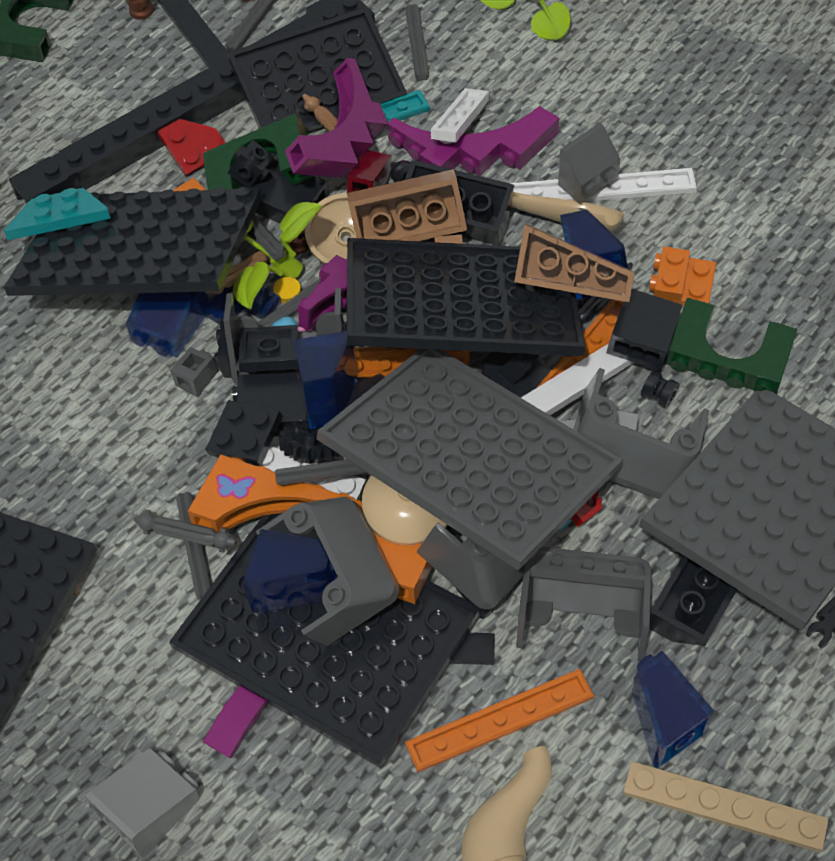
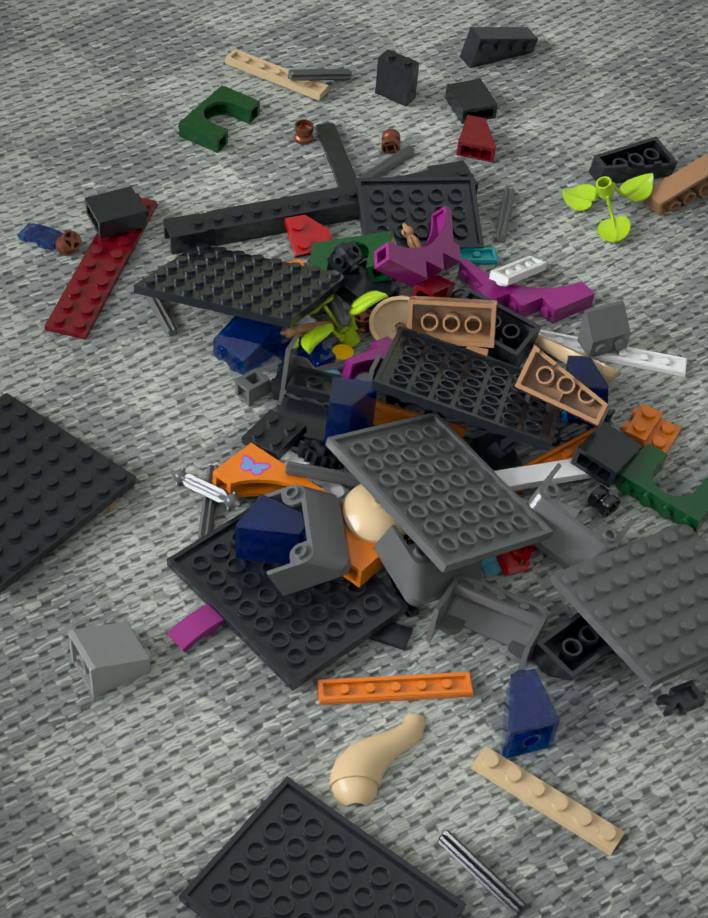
camera: 10 degrees right, 10 degrees down
(48, 305) = (162, 315): none -> dark grey axle
(56, 212) = (190, 250): teal wing -> none

